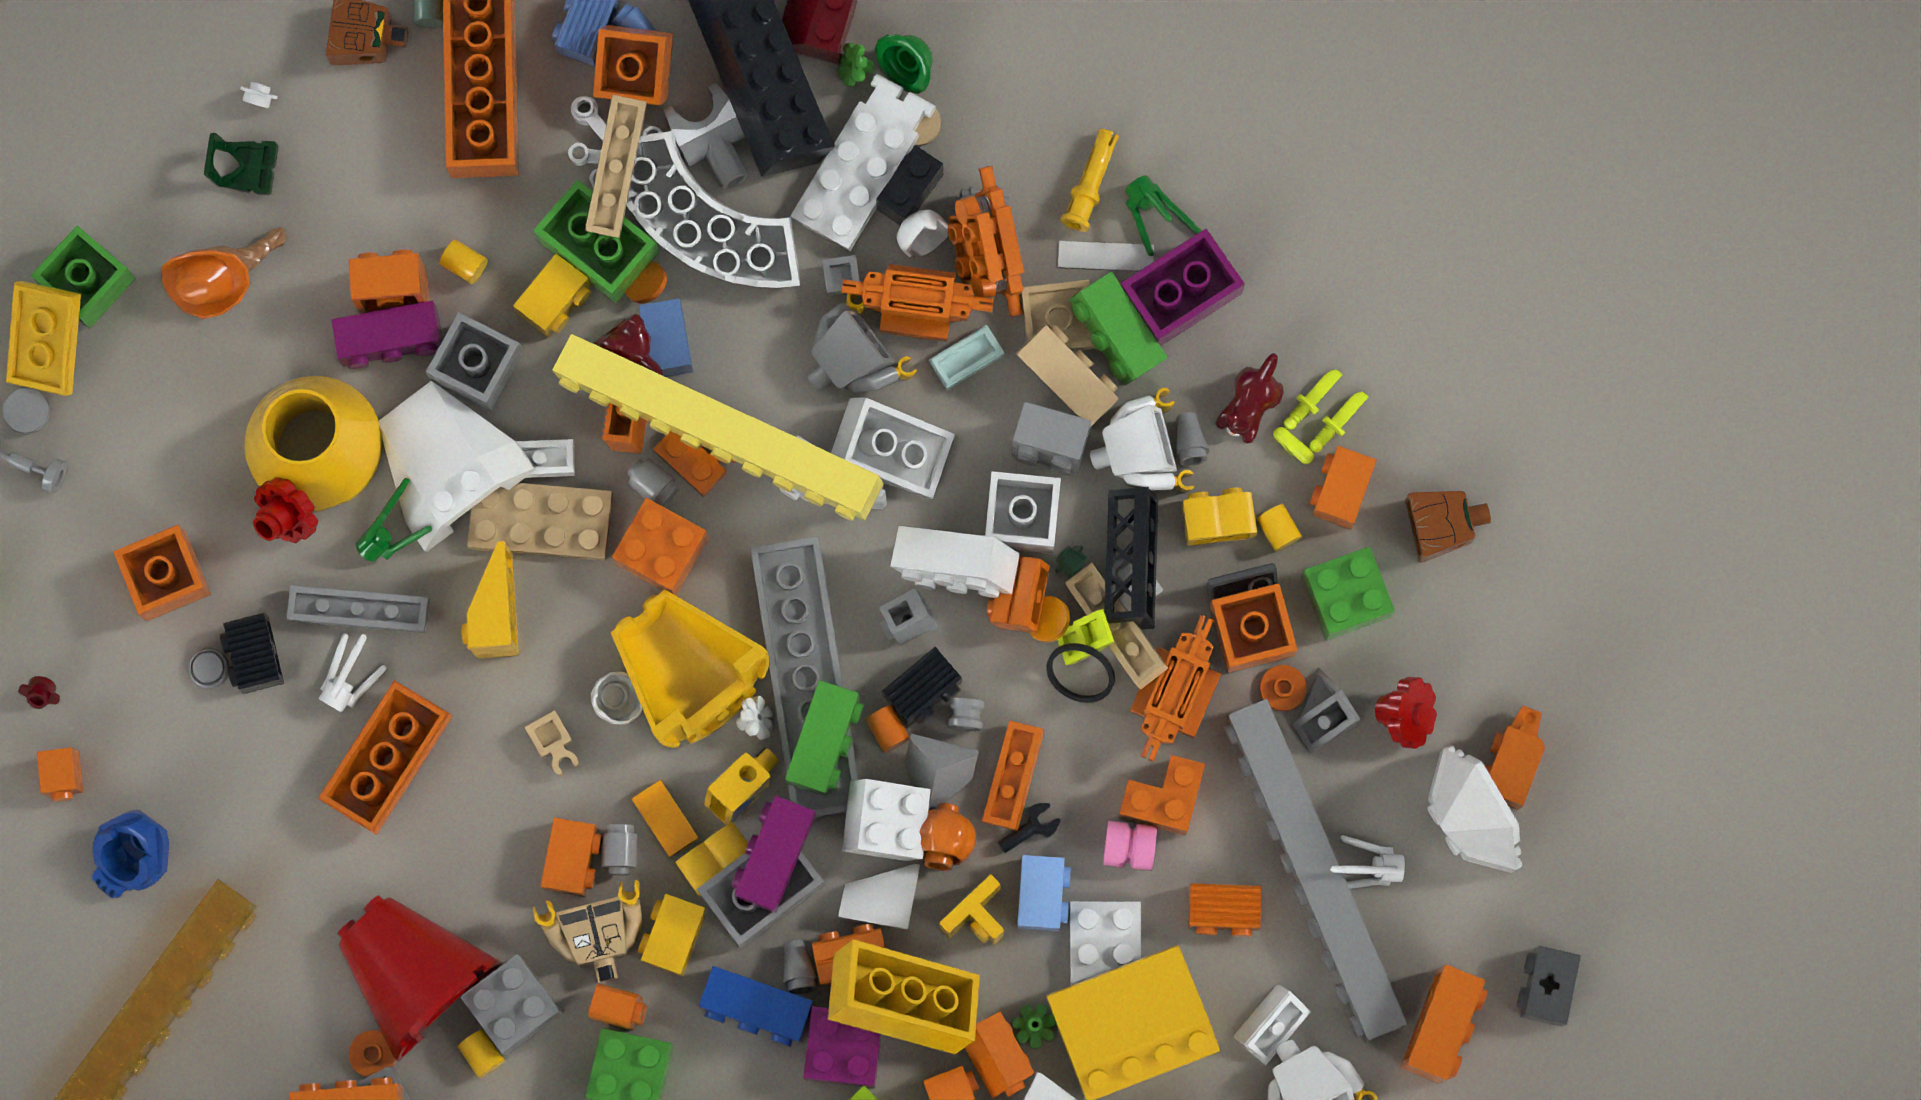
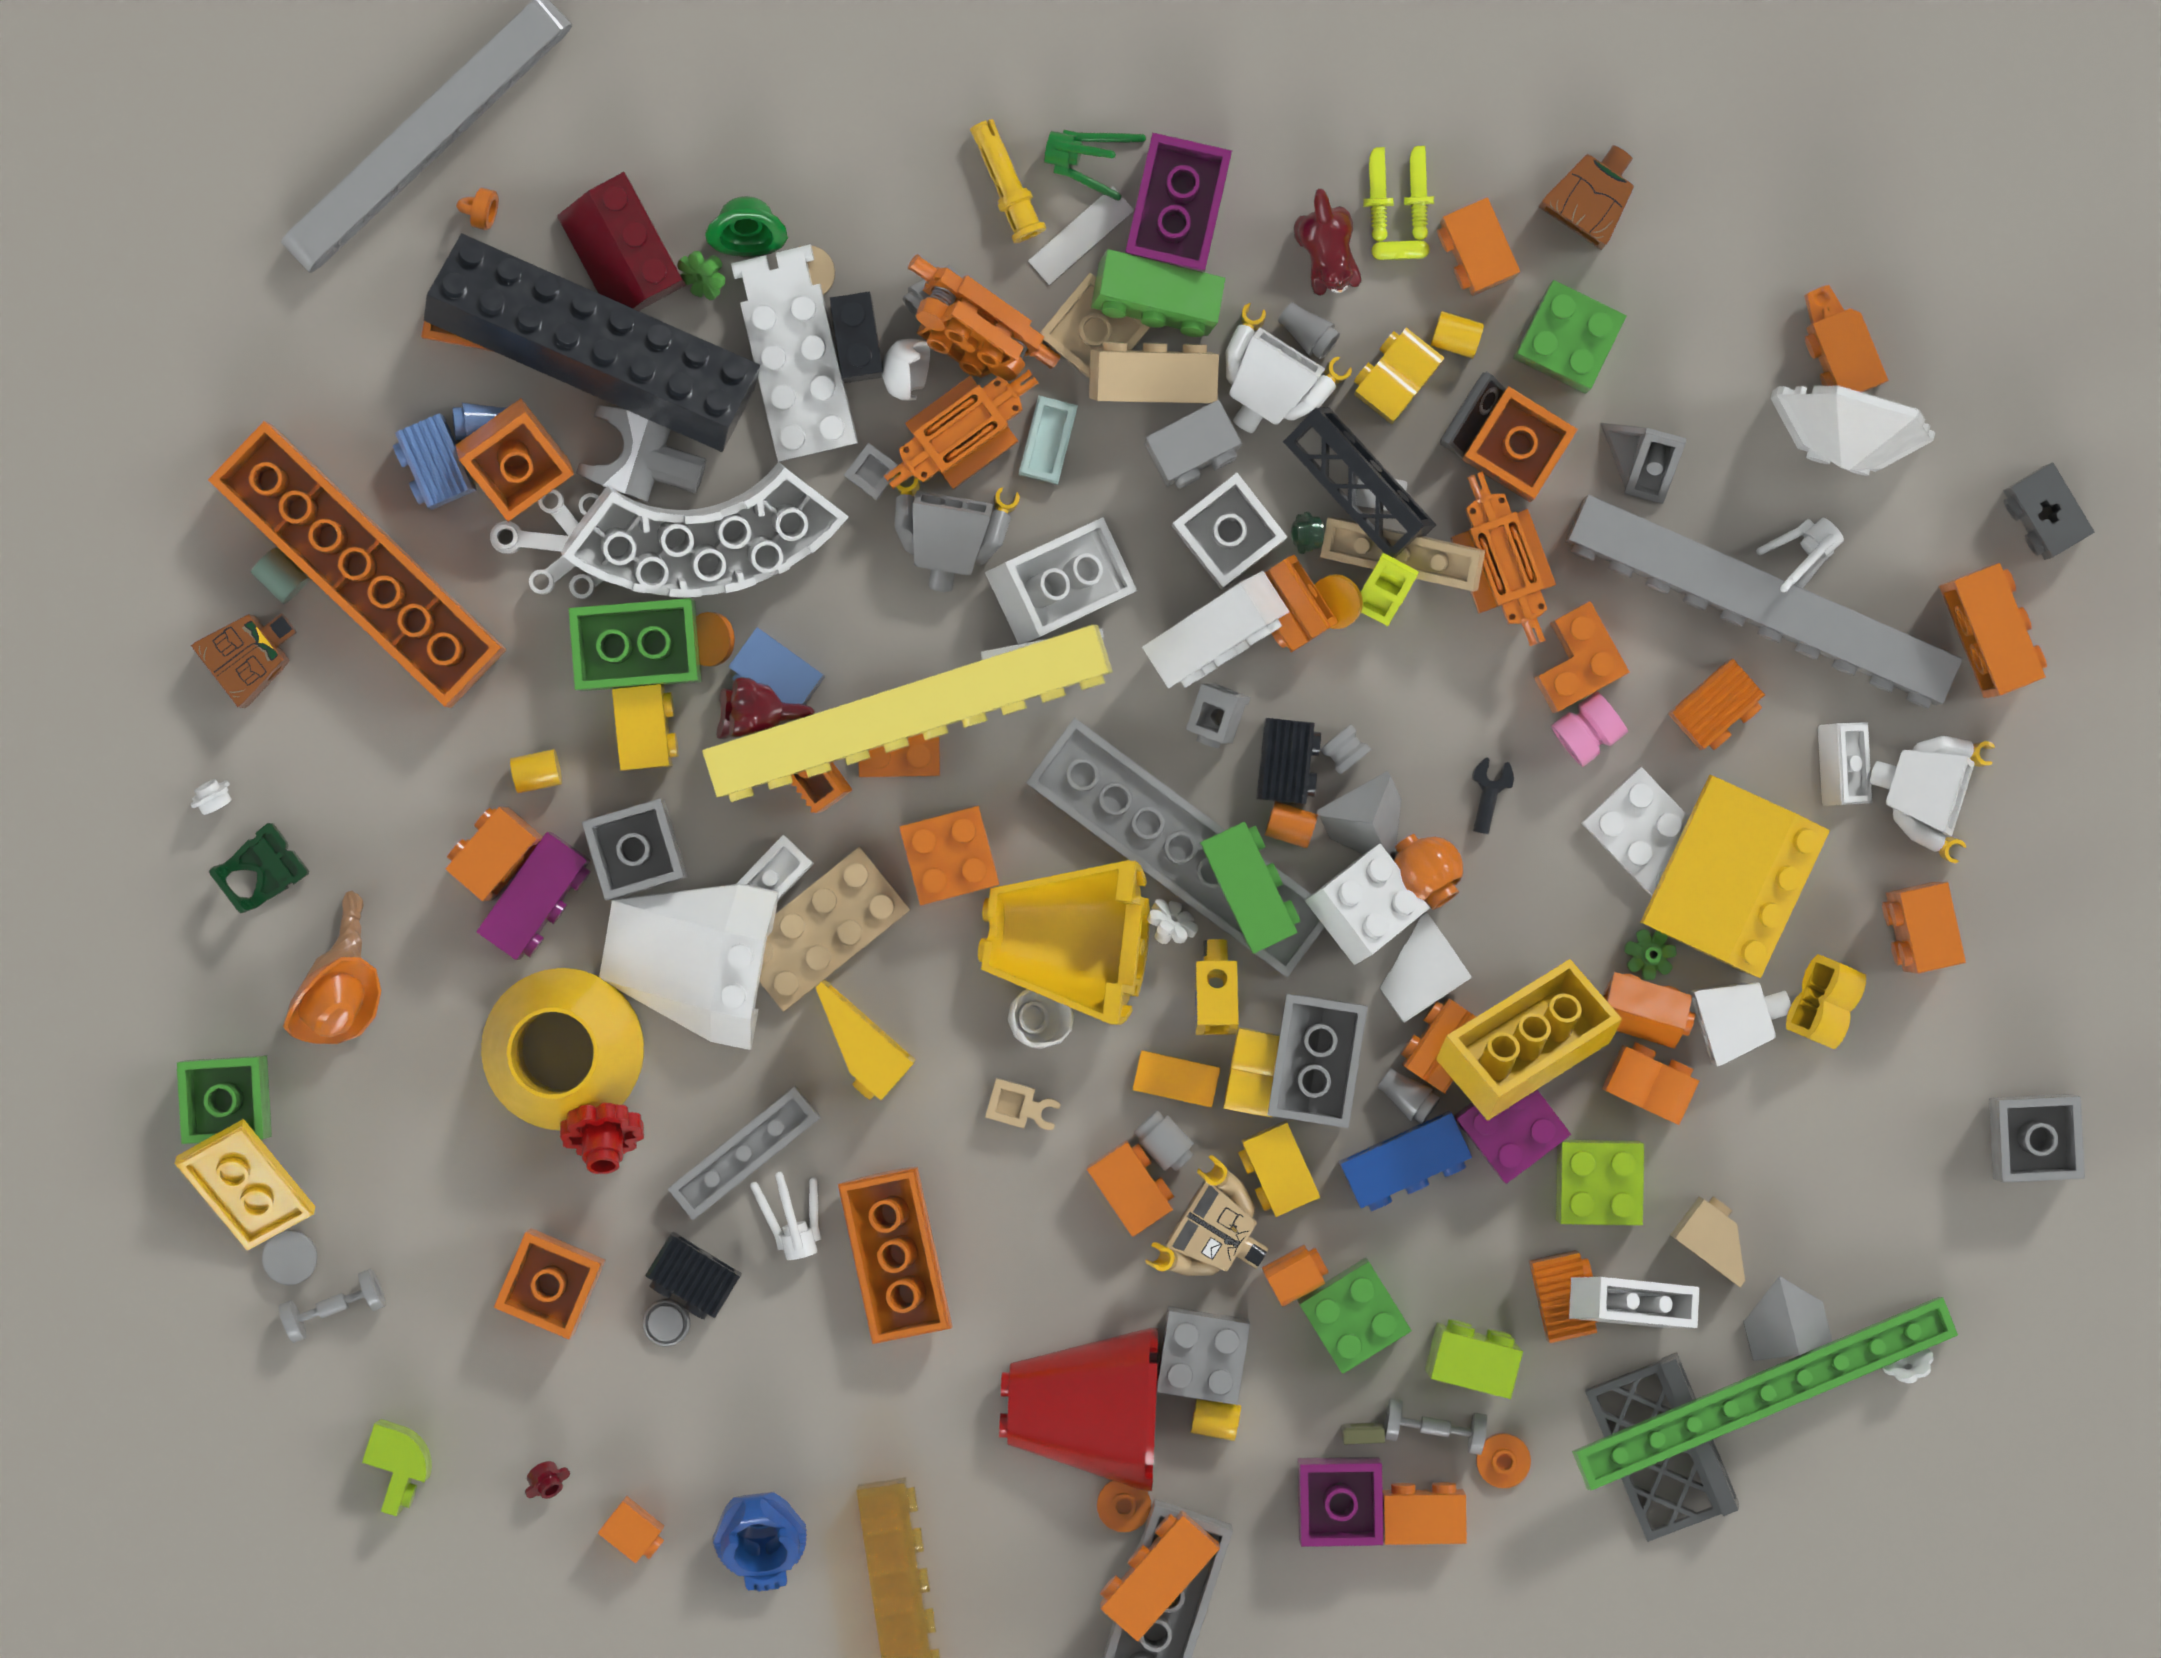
camera: 40 degrees left, 10 degrees up
(377, 539) = (701, 1078): green plant -> none
(616, 166) = (596, 567): tan plate -> none
(652, 482) = (887, 806): light grey brick -> none
(773, 853) = (1306, 1025): magenta brick -> none
(972, 909) = (1510, 909): yellow bracket -> none
(1013, 775) = (1434, 763): orange plate -> none
(1042, 893) = (1553, 838): light blue brick -> none
(1069, 694) = (1399, 600): black piece -> none
(1283, 688) = (1588, 469): orange piece -> none
(1408, 712) = (1716, 392): red plant -> none

